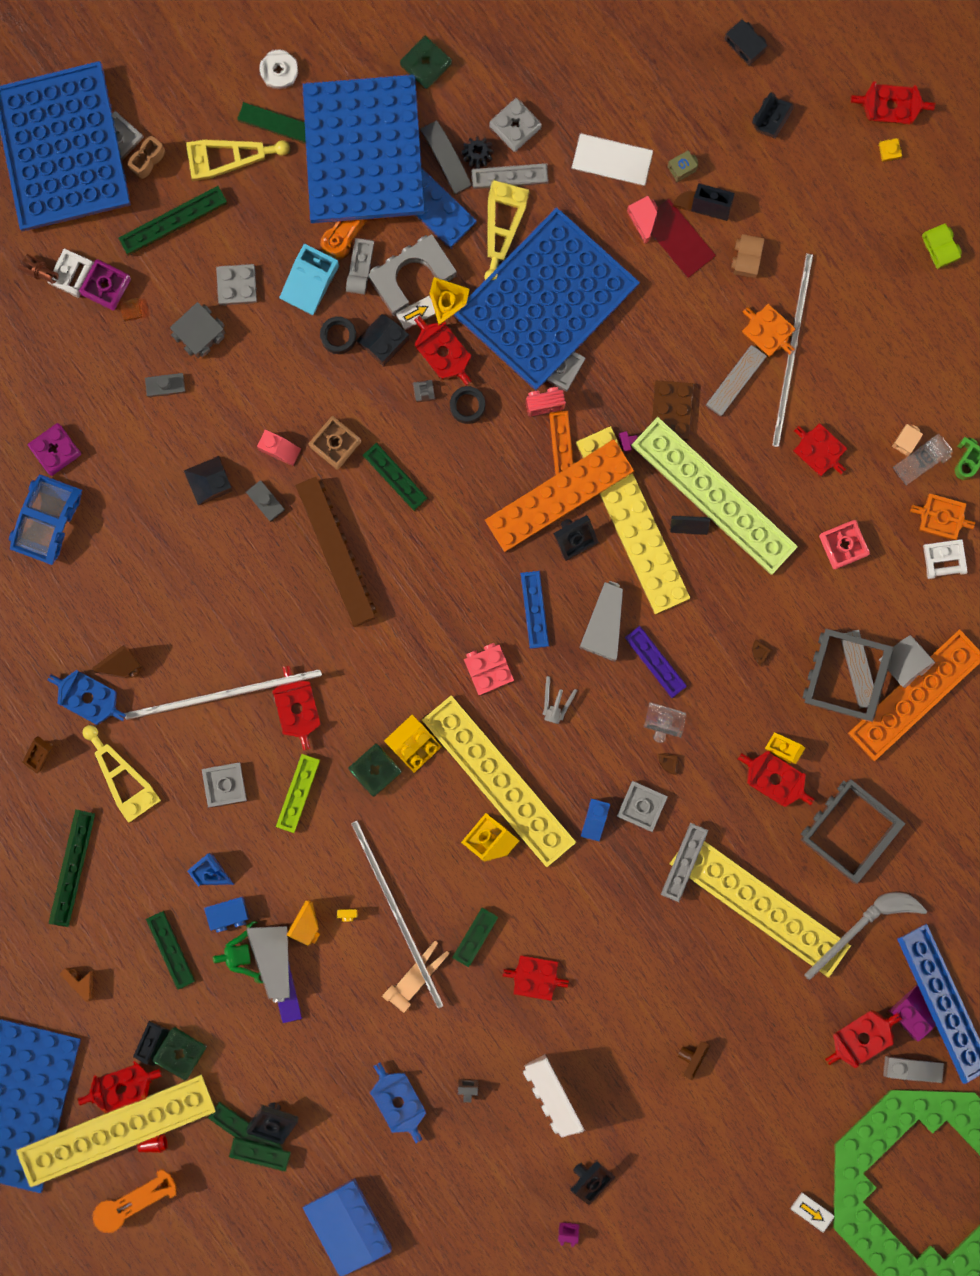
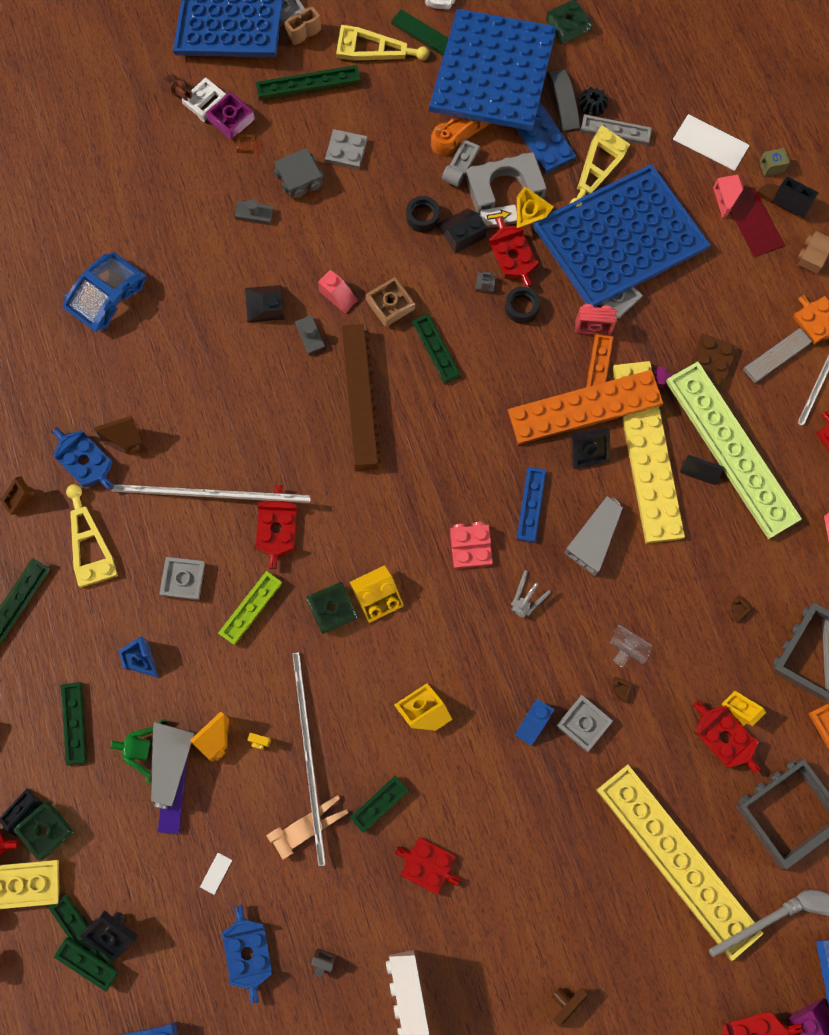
camera: 15 degrees right, 10 degrees down
(65, 453) = (145, 239): magenta brick -> none
(227, 913) = (140, 704): blue brick -> none
(309, 279) = (412, 159): medium azure slope -> none
(347, 1042) = (216, 873): none -> white sticker
(498, 781) = (450, 657): light yellow plate -> none
(515, 136) = (633, 89): light grey brick -> none
(655, 662) = (634, 588): dark purple tile -> none
(684, 862) = (612, 792): light grey tile -> none

